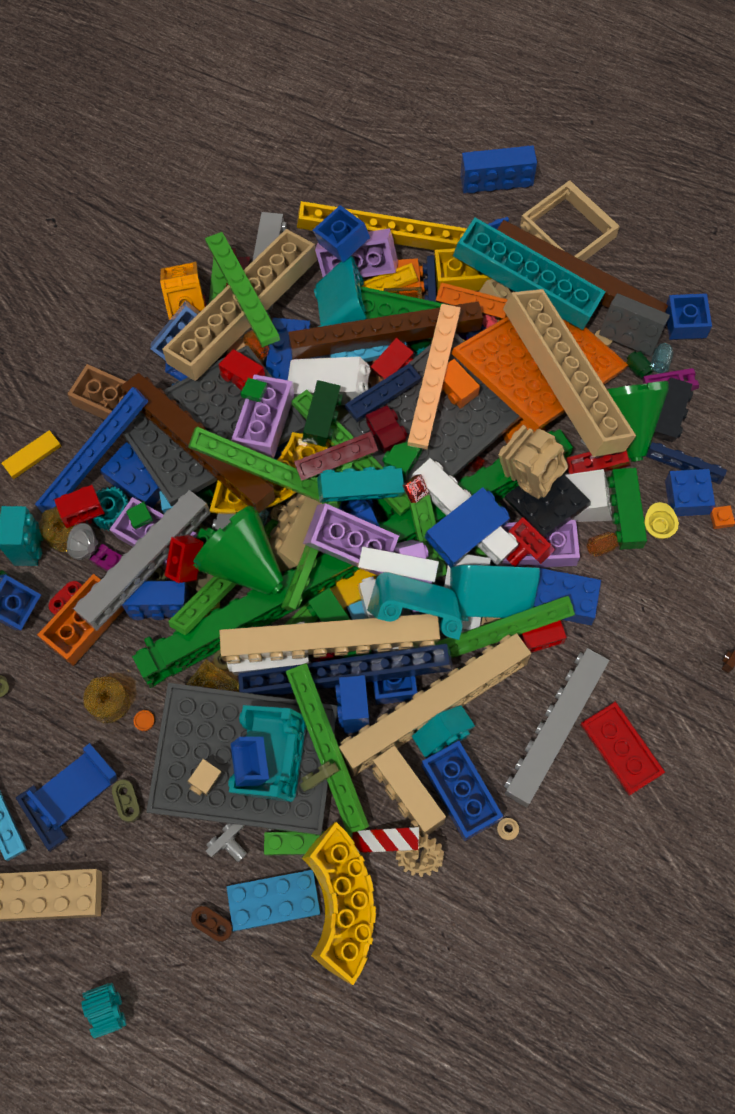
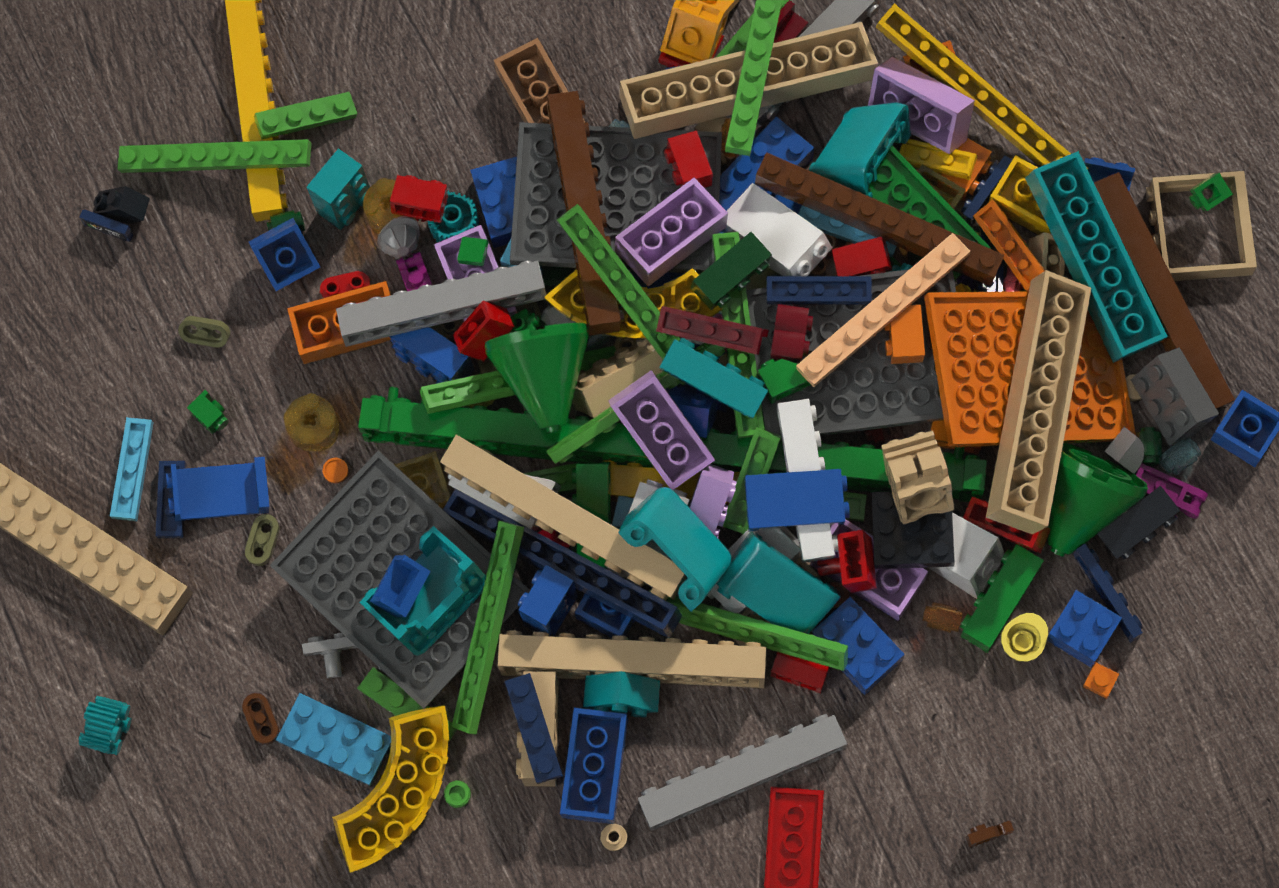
camera: 40 degrees right, 5 degrees up
(28, 742) = (208, 412): none -> green brick
(31, 454) = (415, 100): yellow tile -> none
(94, 448) = (474, 145): blue plate -> none
(179, 320) = (660, 58): medium blue brick -> none
(204, 778) = (345, 571): tan brick -> none
(254, 390) = (679, 196): green tile -> none
(311, 780) = (468, 649): olive plate -> none
(341, 233) = (908, 74): blue brick -> none
(383, 876) = (457, 794): none -> bright green tile
(386, 840) = (481, 759): sticker -> none
(398, 564) = (690, 490): white sticker -> none
(409, 792) = (533, 728): none -> dark blue plate
(415, 488) = (767, 422): clear red plate -> none
(430, 857) = (515, 807): tan gear -> none
(498, 169) = (1169, 102): blue brick -> none
(562, 200) = (1218, 189): none -> green brick
(631, 372) = (1127, 450): none -> light grey brick

